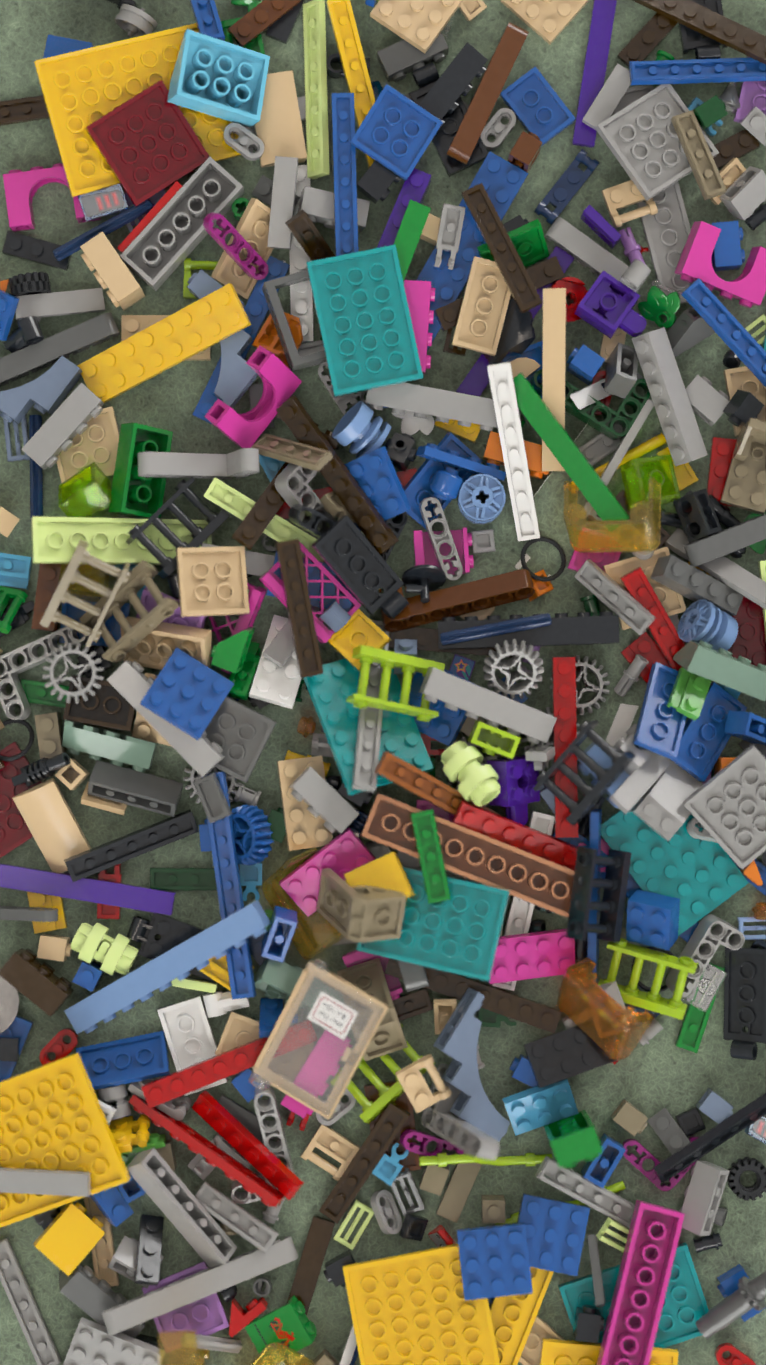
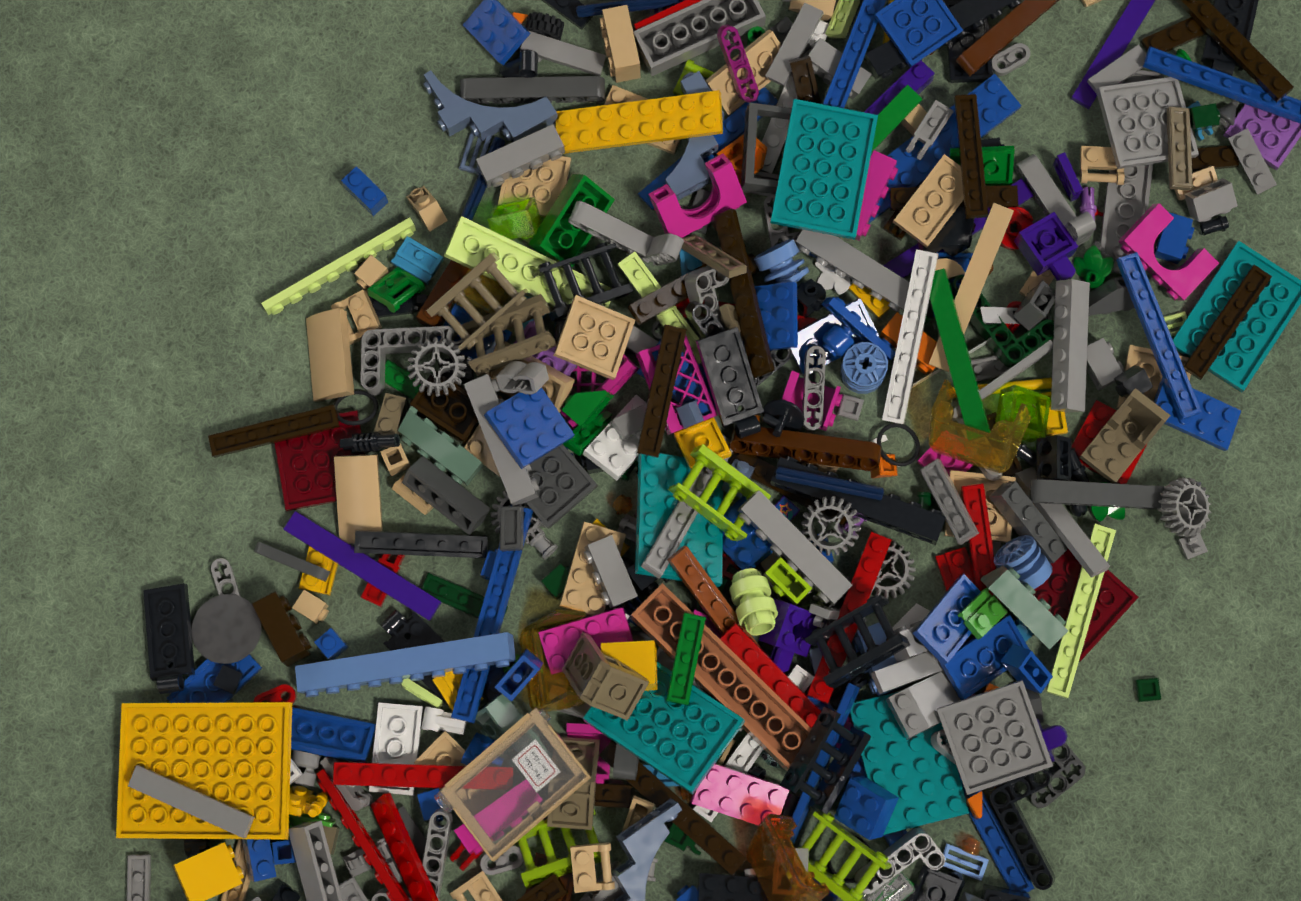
camera: 25 degrees right, 10 degrees down
(94, 943) = (349, 618): yellowish green piece -> none
(160, 650) = (522, 377): none -> light grey brick
(251, 834) = (532, 577): blue gear -> none
(251, 877) = (515, 618): dark azure plate -> none
(525, 151) = (1026, 85): reddish brown brick -> none
(537, 106) = (1053, 54): blue plate -> none
(566, 187) = (1051, 132): dark blue plate -> none
(584, 363) = (1005, 287): blue brick -> none
(630, 675) = (935, 580): light grey axle -> none
(731, 360) = (1139, 338): black hinge -> none

